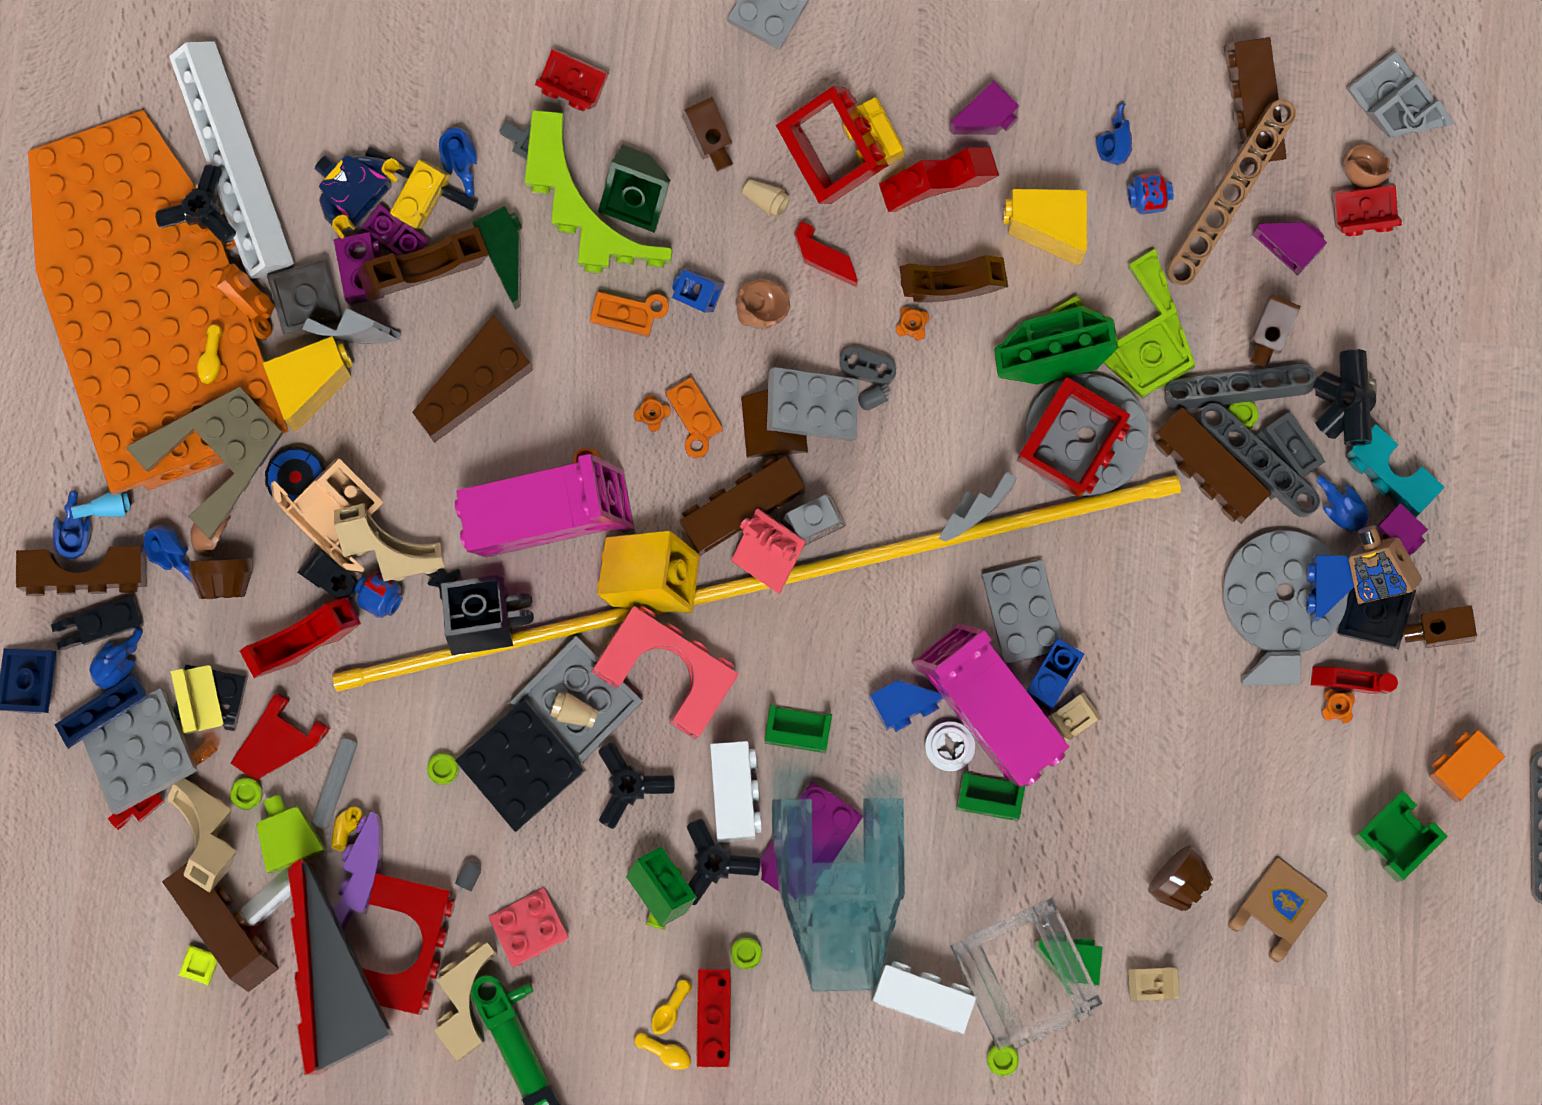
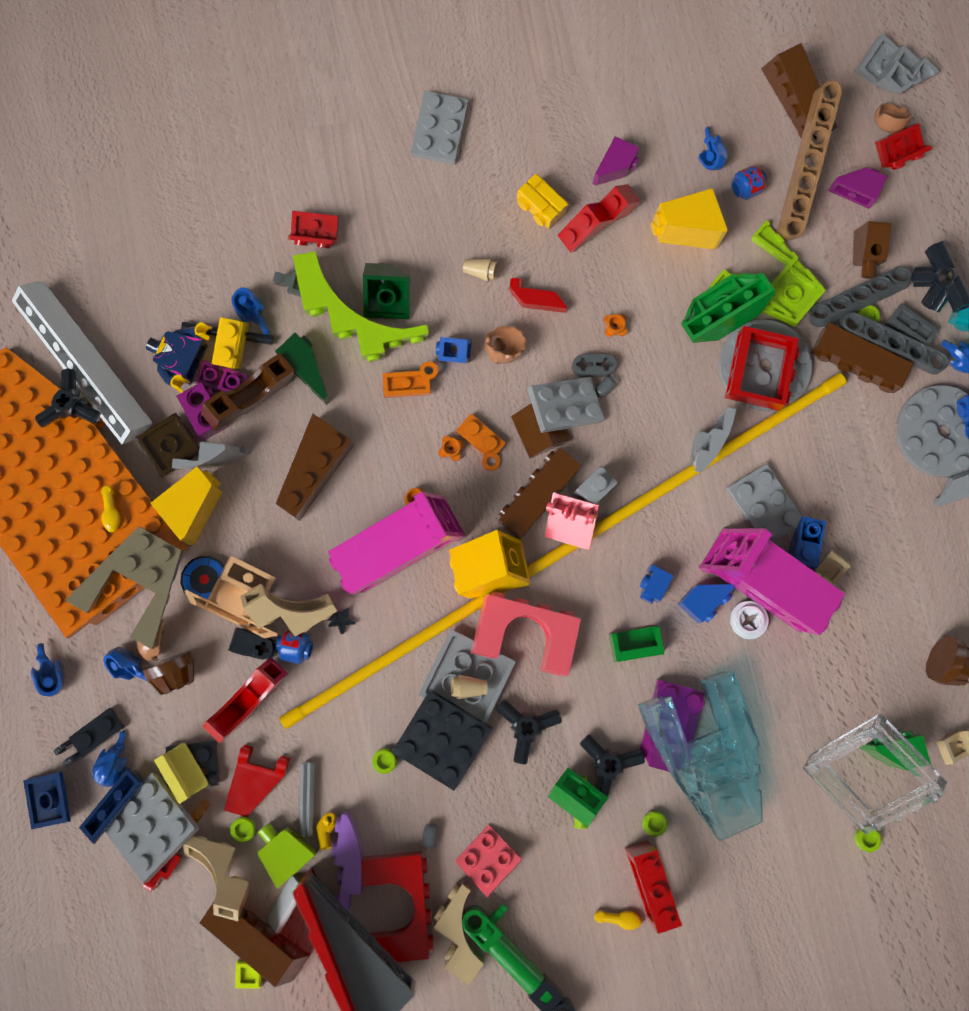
camera: 25 degrees left, 0 degrees up
(103, 506) = (65, 648): medium azure cone -> none
(121, 568) = (33, 712): reddish brown arch -> none
(248, 299) = (126, 459): orange hinge -> none
(480, 615) = (374, 637): black hinge -> none
(667, 1014) = (612, 891): yellow piece -> none
(706, 120) = (418, 228): reddish brown torso -> none
(735, 792) = (609, 708): white brick -> none
(808, 161) = (532, 194): red window -> none
(846, 664) = (655, 584): none -> blue brick
(924, 997) = (802, 816): white brick -> none
(953, 281) = (637, 284): reddish brown arch -> none
(990, 797) = (791, 647): green panel -> none

